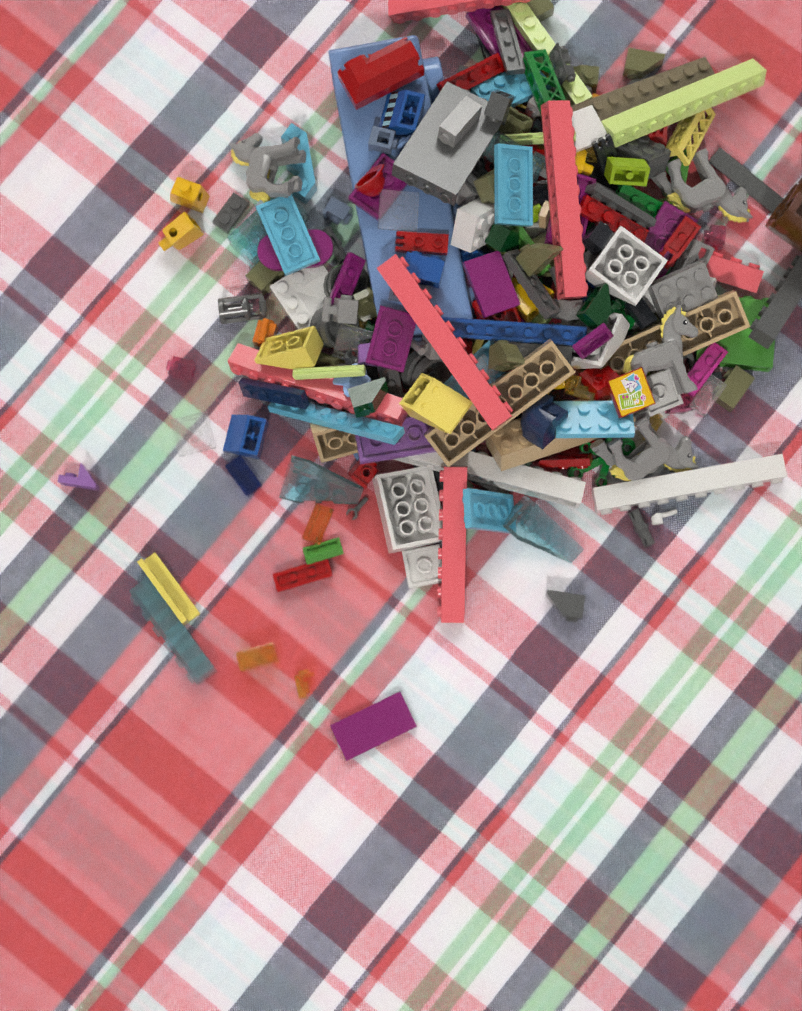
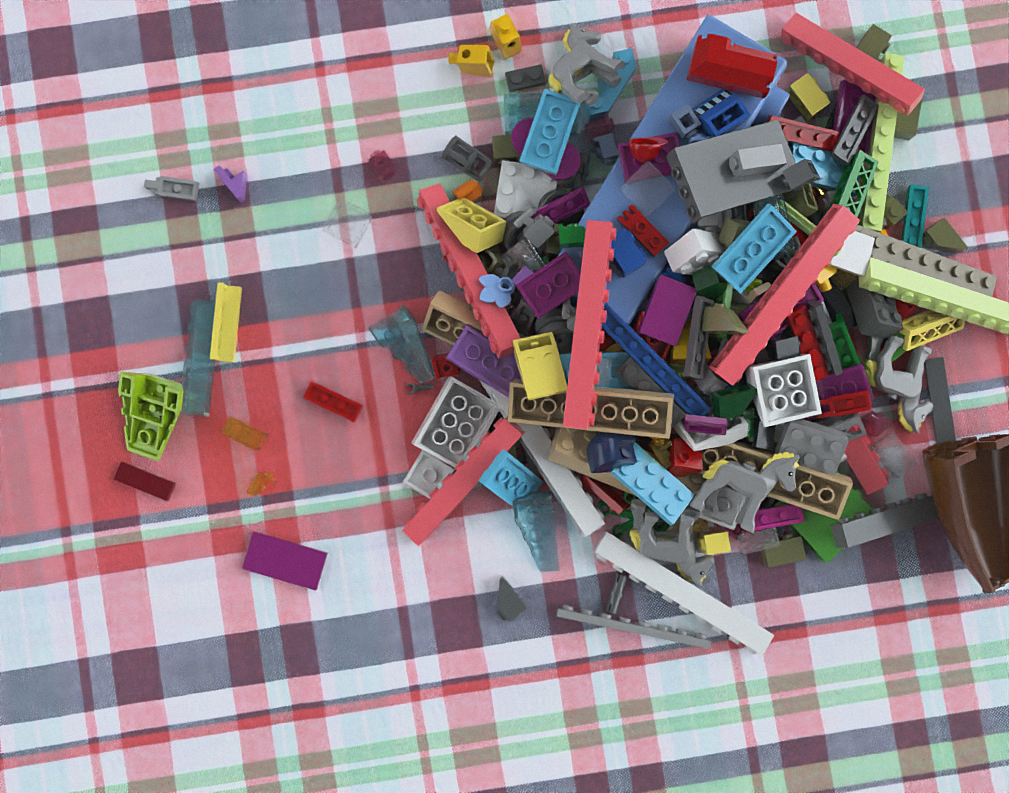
camera: 30 degrees right, 5 degrees up
(37, 523) = (173, 188): none -> light grey hinge
(171, 705) = (150, 411): none -> lime wedge
(212, 762) = (144, 481): none -> dark red tile
(243, 476) = (356, 287): clear blue tile -> none
(246, 436) = (384, 259): blue slope -> none
(274, 393) = (431, 245): dark blue plate -> none
(317, 524) = (378, 373): clear orange tile -> none
(319, 201) = (599, 127): none -> clear pink bracket
(323, 551) = (364, 397): bright green tile -> none
(329, 372) = (483, 267): yellowish green axle -> none
(342, 421) = (459, 309): medium azure plate -> none
(368, 396) = (494, 313): slope -> none
(374, 291) = (571, 236): none -> green brick
(451, 47) = (808, 96): none -> light yellow brick
(504, 356) = (625, 377): olive slope -> none
(560, 57) = (882, 179): dark grey hinge -> none
(603, 151) = (847, 292): black hinge -> none
(608, 65) = (915, 218): none -> teal plate
(627, 171) = (854, 315): lime brick -> none
(630, 392) = (698, 489): tile -> none
(657, 519) = (635, 597): white hand -> none
(676, 425) = (713, 542): none -> light yellow brick
(682, 536) = (641, 627): none -> light grey plate
(749, 248) = (894, 455): none -> clear brick

